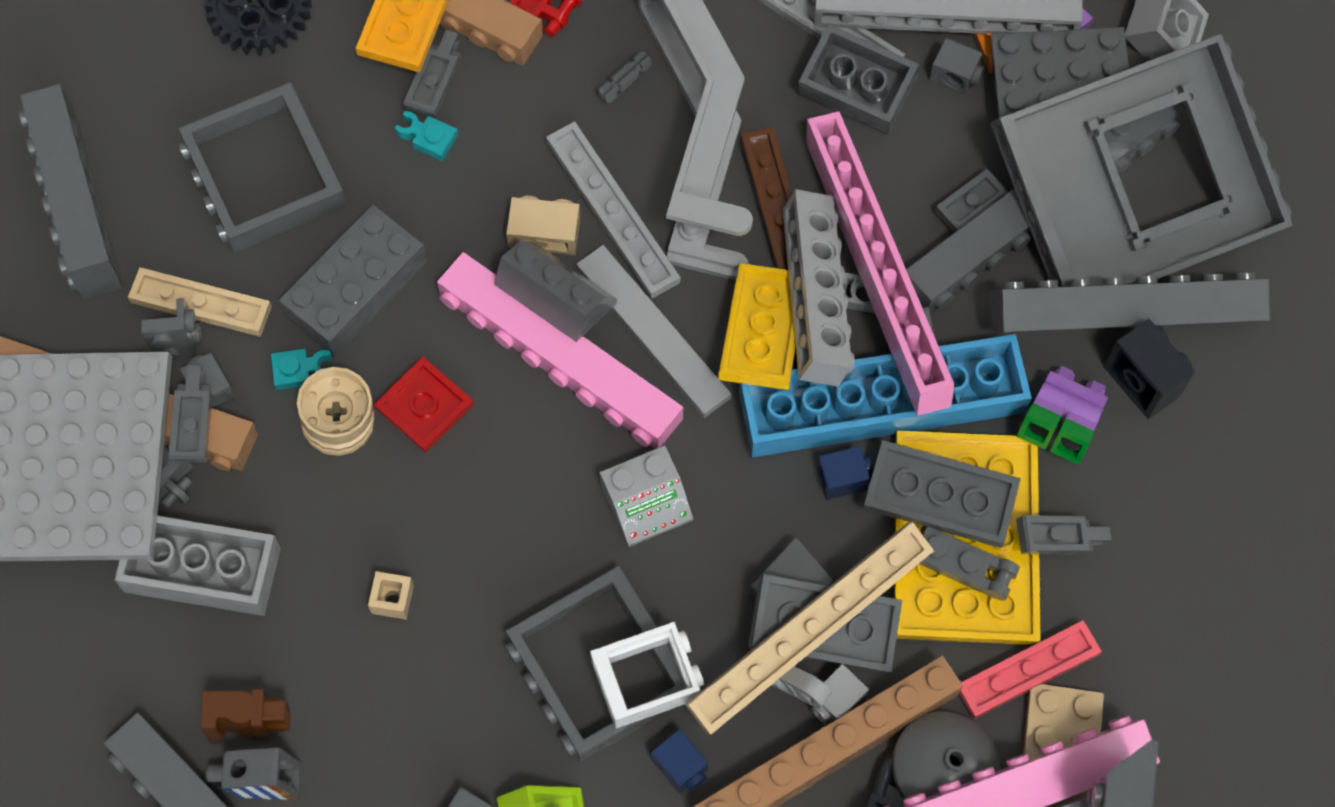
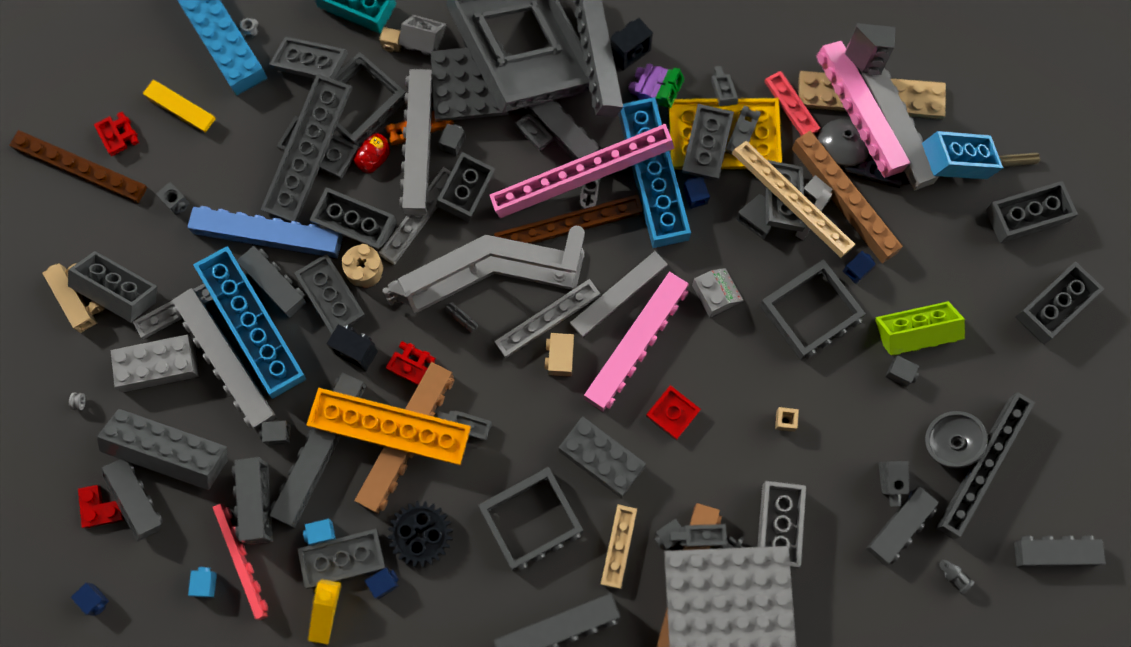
camera: 90 degrees left, 5 degrees up
(174, 334) = (650, 558): dark grey bracket -> none
(242, 715) = (864, 489): reddish brown hips -> none
(295, 366) = (655, 487): teal plate -> none
(333, 392) = (691, 447): tan wheel -> none
(429, 137) = (504, 424): teal plate -> none
(552, 289) = (605, 341): dark grey slope -> none
(634, 645) = (823, 257): white window -> none
(760, 329) = (621, 230): yellow tile -> none
(817, 288) = (599, 202): light grey brick -> none

